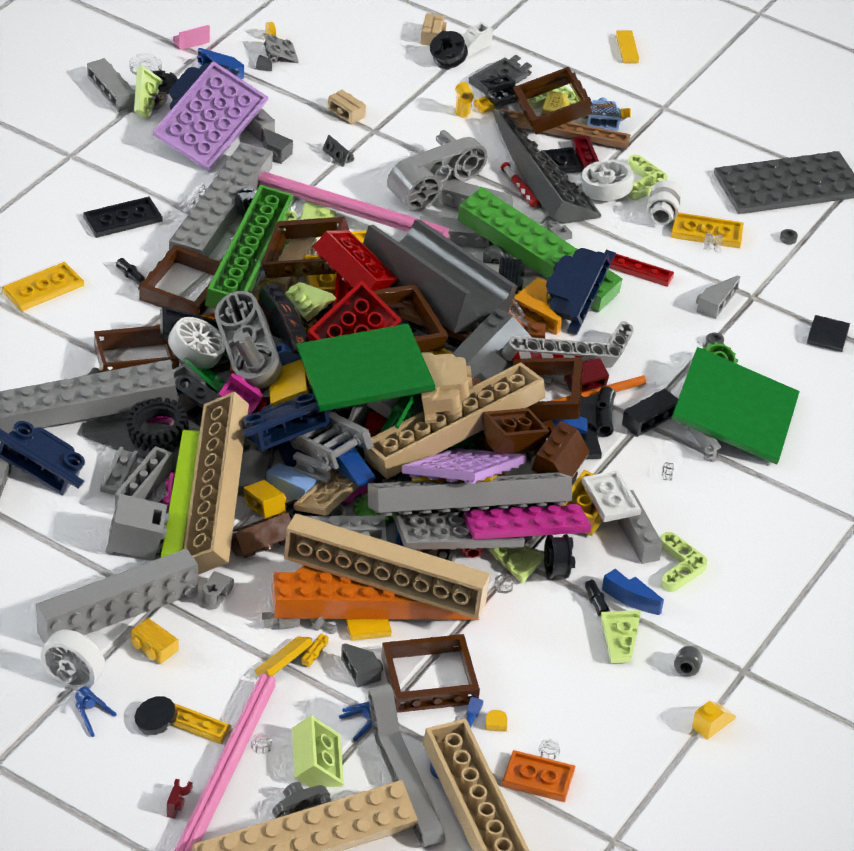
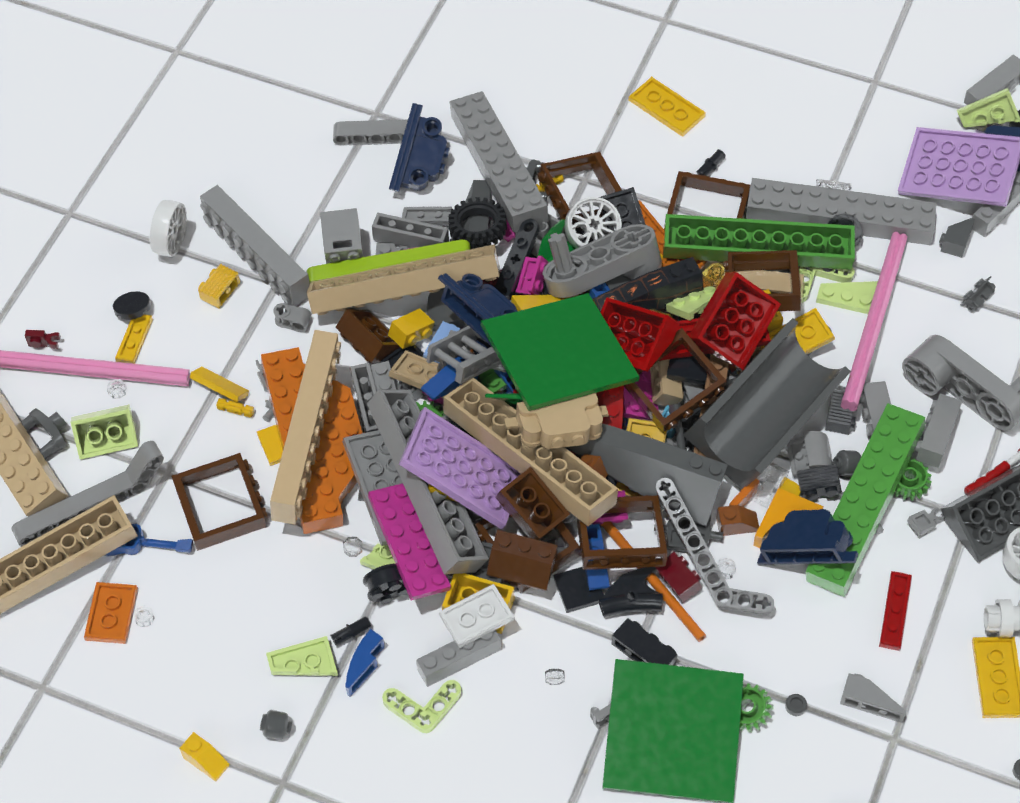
camera: 85 degrees right, 15 degrees up
(88, 700) = (143, 255): blue plant -> none
(122, 216) = (794, 141): black tile -> none
(355, 709) = (169, 463): blue plant -> none
(361, 665) = (218, 443): dark grey slope -> none
(496, 720) = (173, 567): yellow tile -> none
(708, 243) = (969, 682): clear wheel -> none

